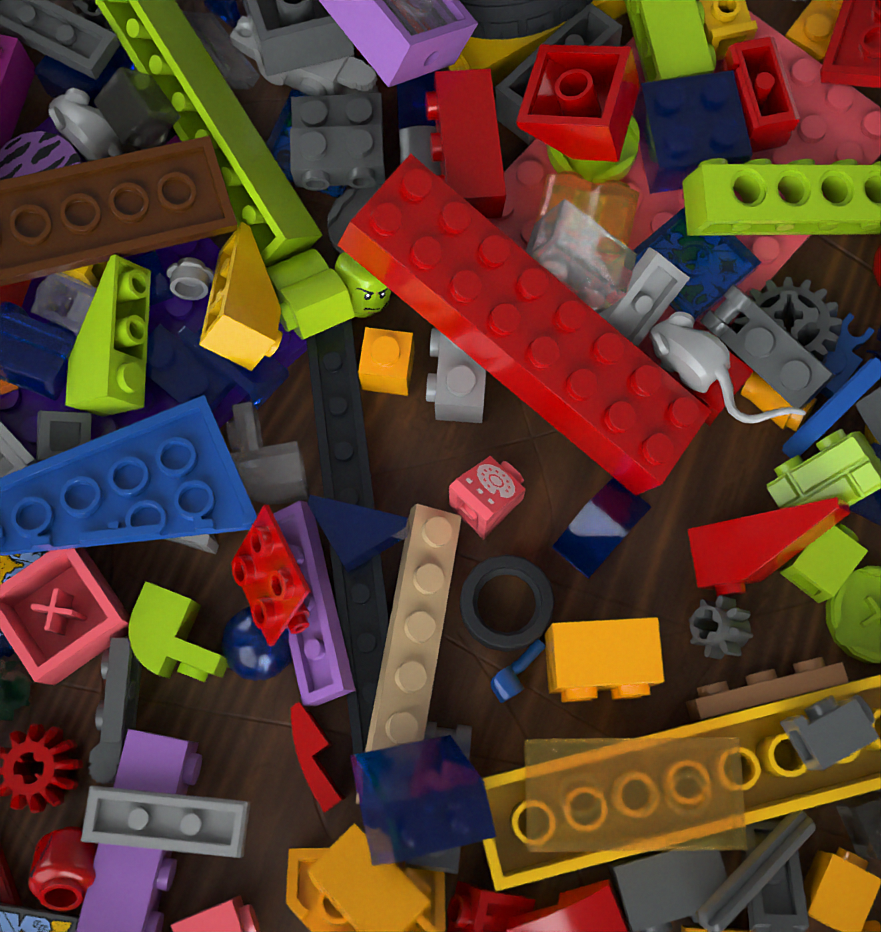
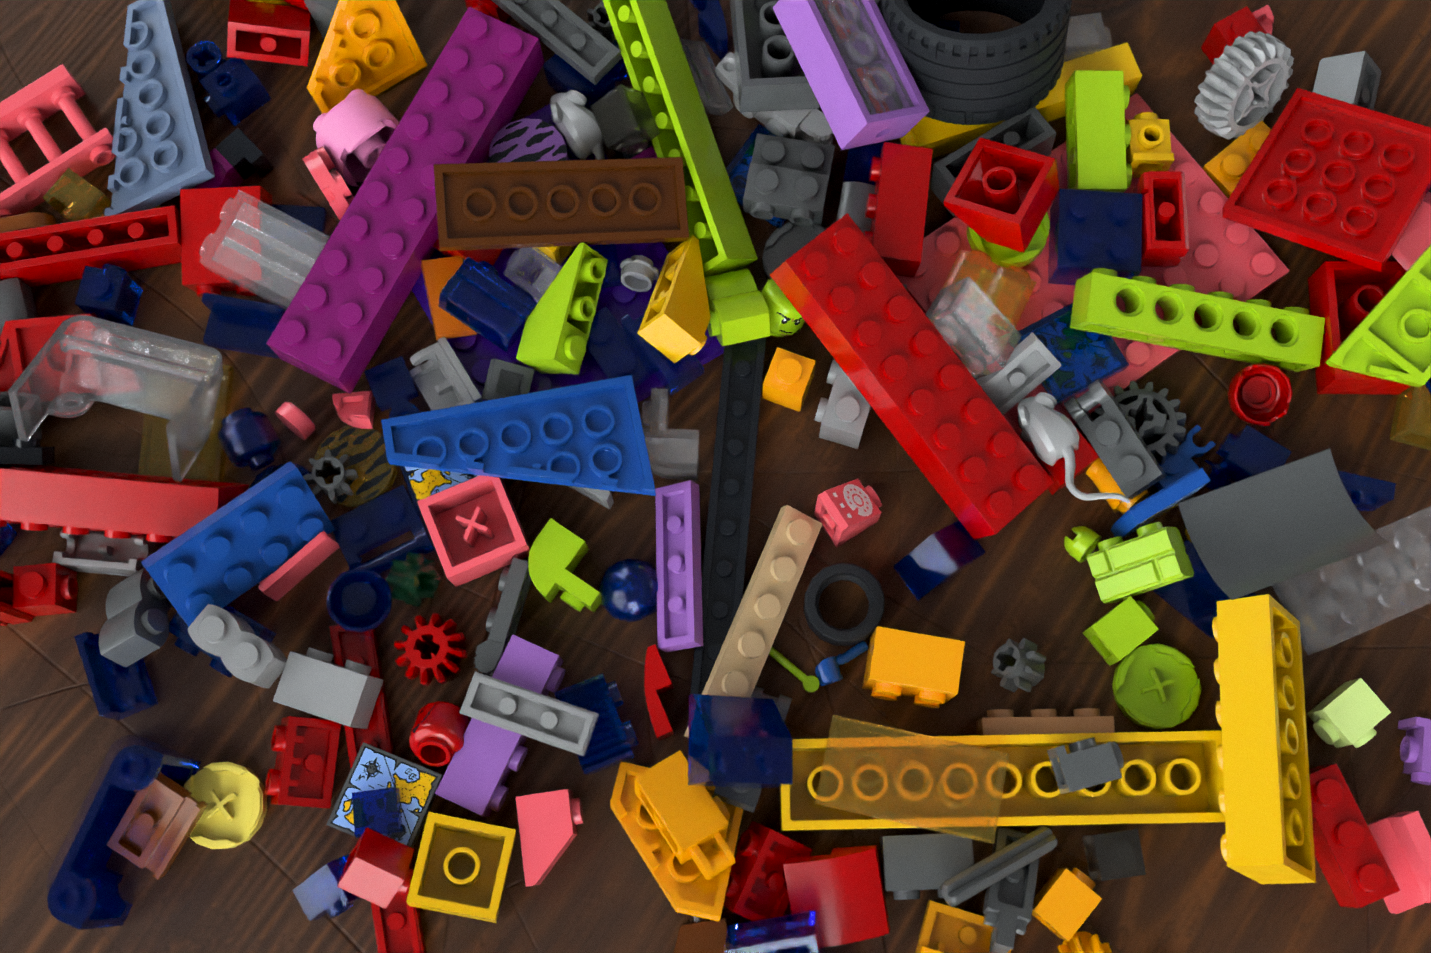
camera: 15 degrees right, 0 degrees up
(271, 579) = (655, 538): red hinge -> none
(271, 821) = (611, 737): none -> clear blue brick
(357, 531) = (733, 516): clear blue slope -> none
(488, 703) = (809, 683): none -> lime hinge
(756, 545) = (1066, 603): red slope -> none
(758, 472) = (1083, 543): none -> lime hinge

